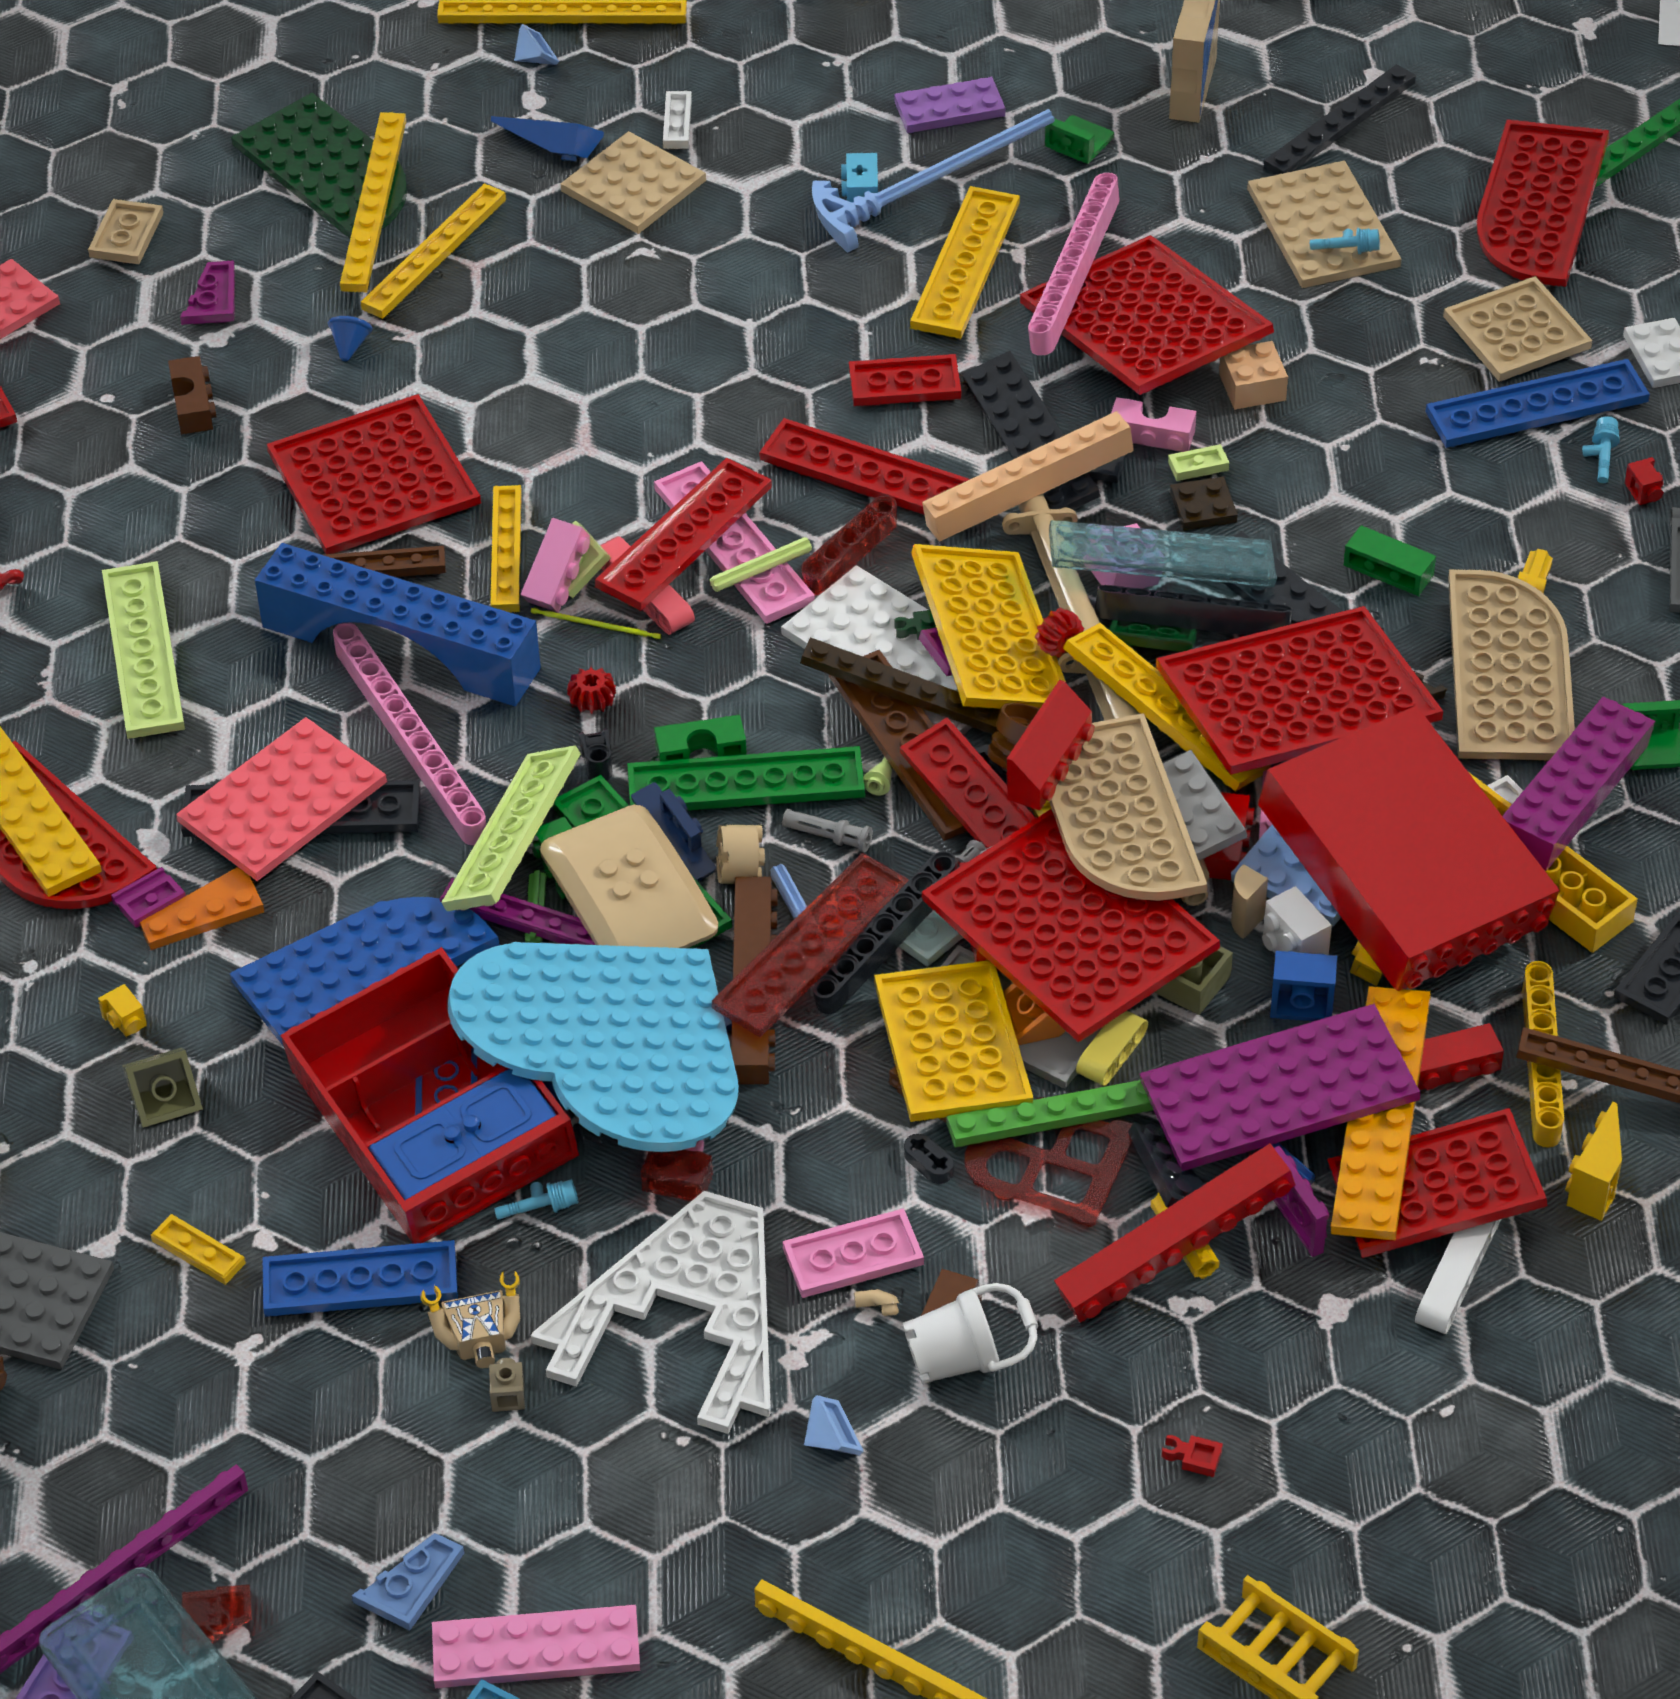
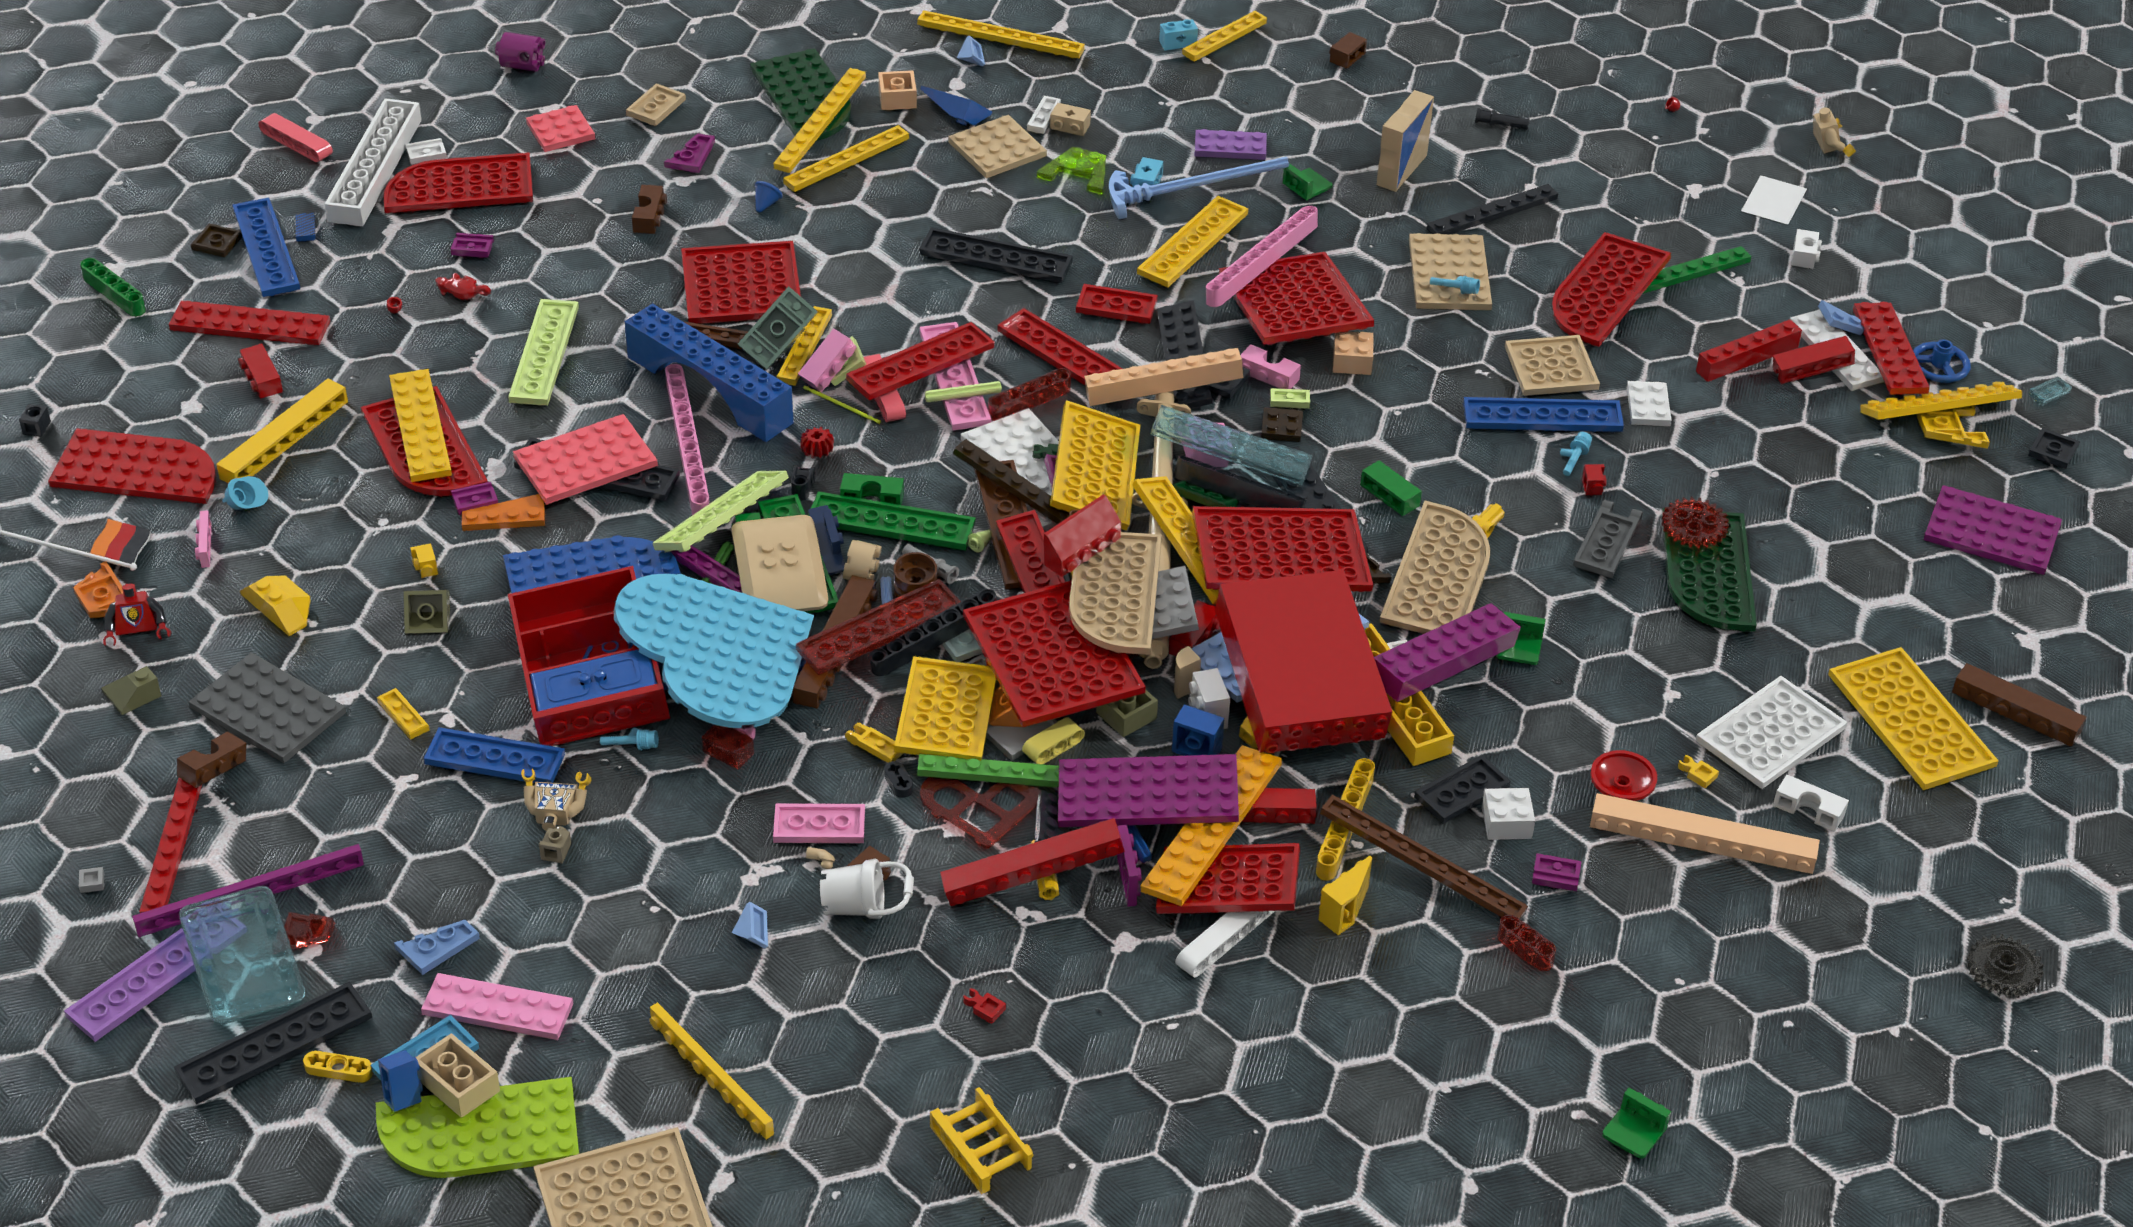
camera: 15 degrees right, 5 degrees down
(461, 130) = (897, 90): none -> light nougat brick
(468, 534) = (778, 328): none -> sand green brick
(702, 1258) = (717, 802): white wing -> none
(707, 347) = (996, 255): none -> black plate
(717, 118) = (1070, 119): none -> tan brick
(760, 181) = (1078, 163): none -> clear neon green wing
(821, 855) = (913, 572): none -> reddish brown wheel
(871, 1114) = (873, 742): none -> yellow hinge
(1057, 630) = (1134, 471): red gear -> none

